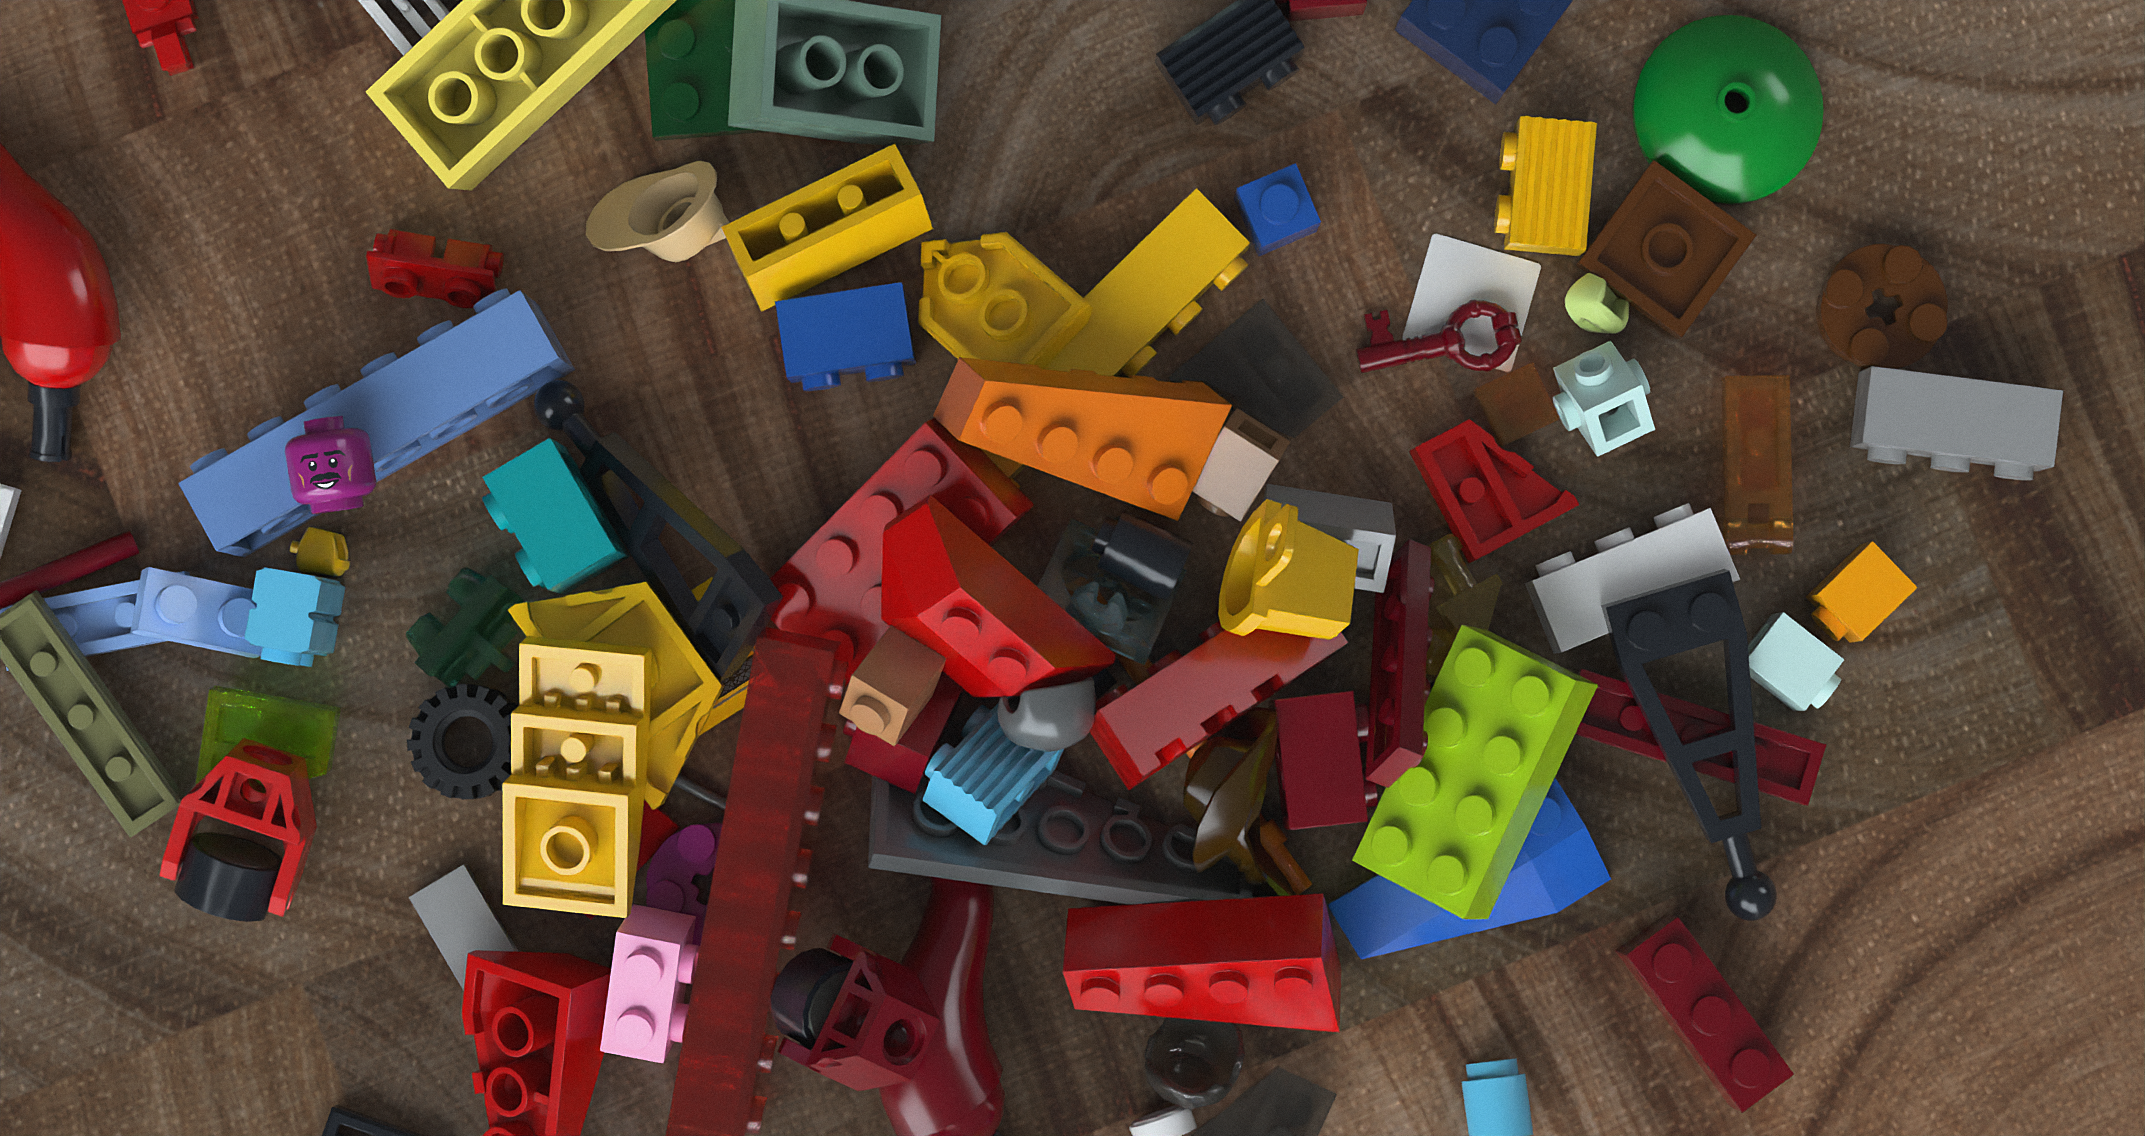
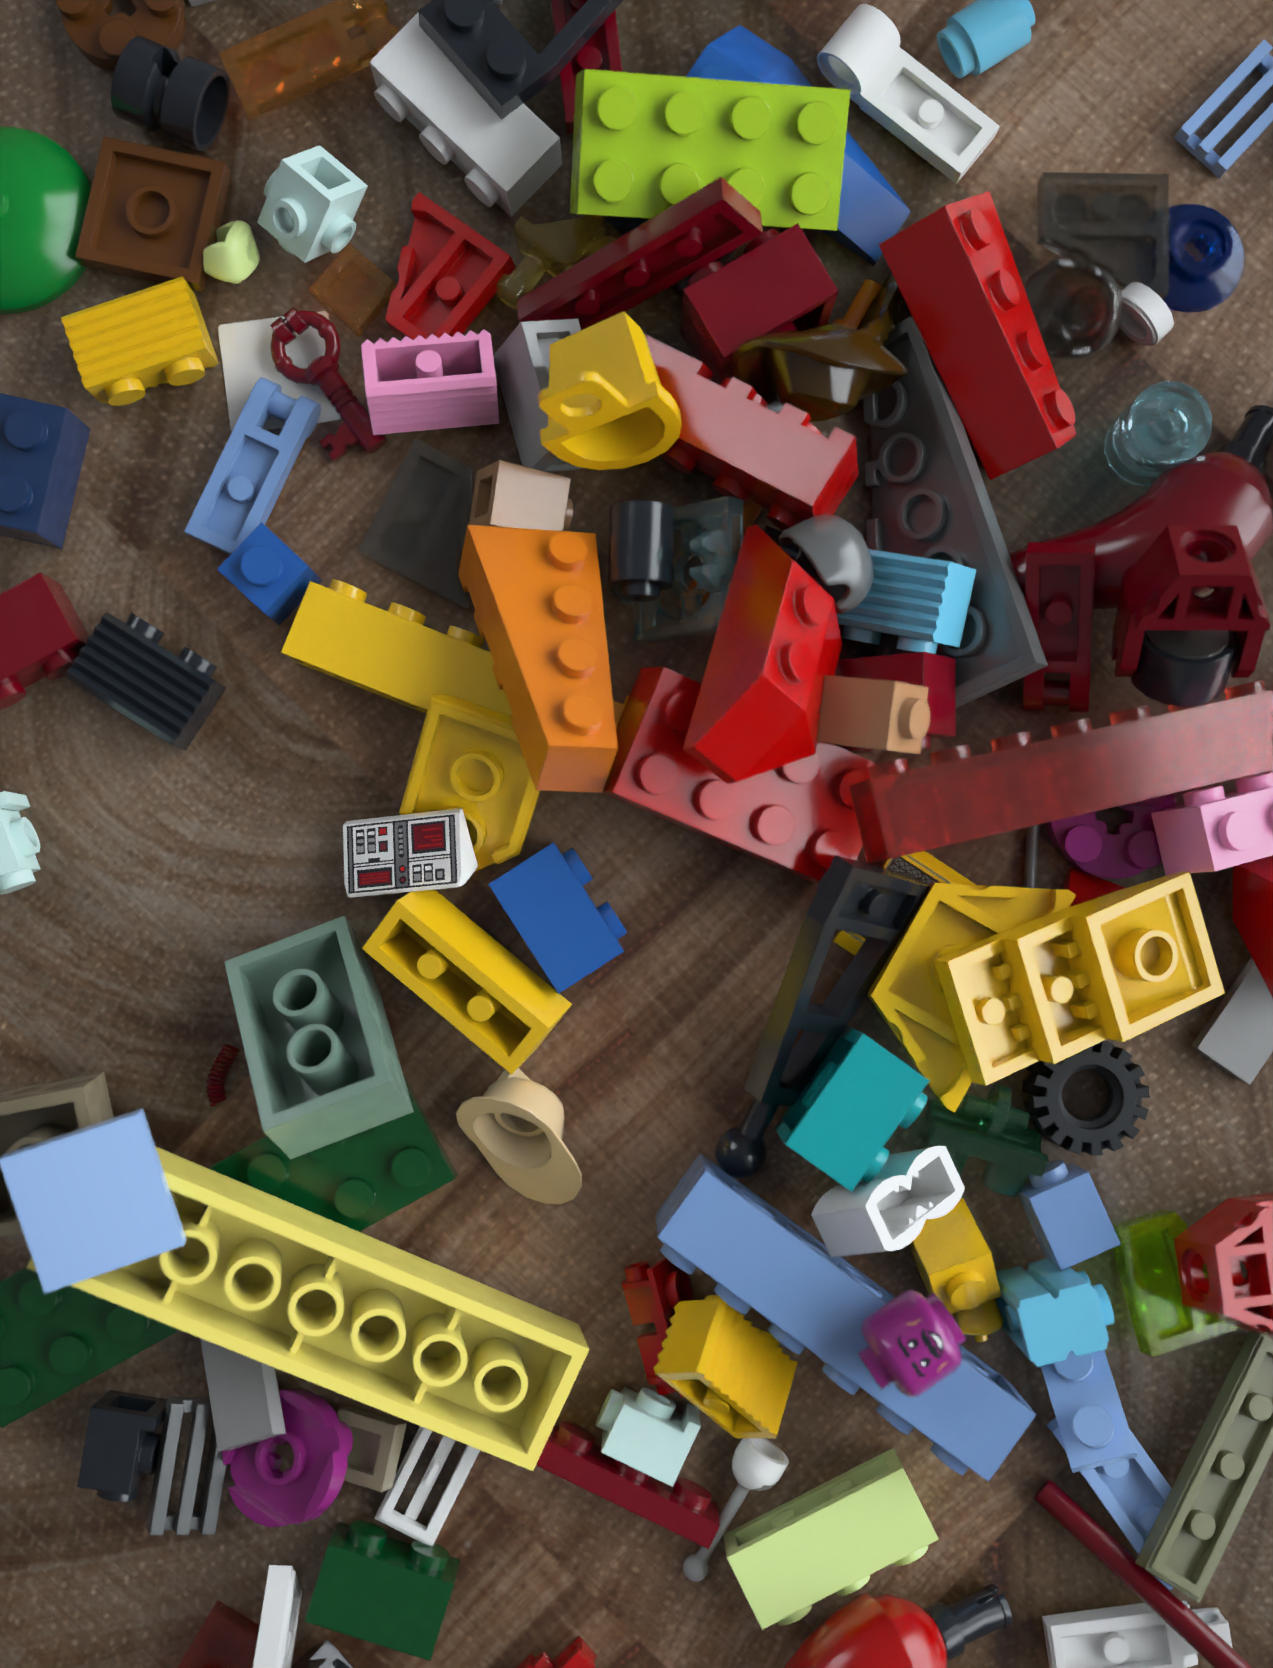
camera: 120 degrees left, 0 degrees up
(179, 329) = (829, 1540): none -> yellowish green brick
(273, 292) = (756, 1467): none -> white hinge
(312, 172) = (680, 1508): none -> dark red plate
(349, 208) = (647, 1432): none -> light aqua brick
(370, 673) = (1067, 1214): none -> medium blue brick
(375, 303) = (727, 1367): none -> yellow brick
(379, 549) = (955, 1260): none -> yellow brick
(453, 513) = (890, 1207): none -> white brick
(903, 905) = (1061, 608): none -> dark red plate
(963, 222) = (407, 853): none -> slope
(1042, 1085) = (1158, 432): none -> clear light blue wheel
(1384, 236) = (252, 467): none -> medium blue plate
(1386, 432) = (430, 382): none -> bright pink brick
(1468, 1000) = (904, 93): none -> white plate
(1774, 308) = (160, 89): none -> black wheel

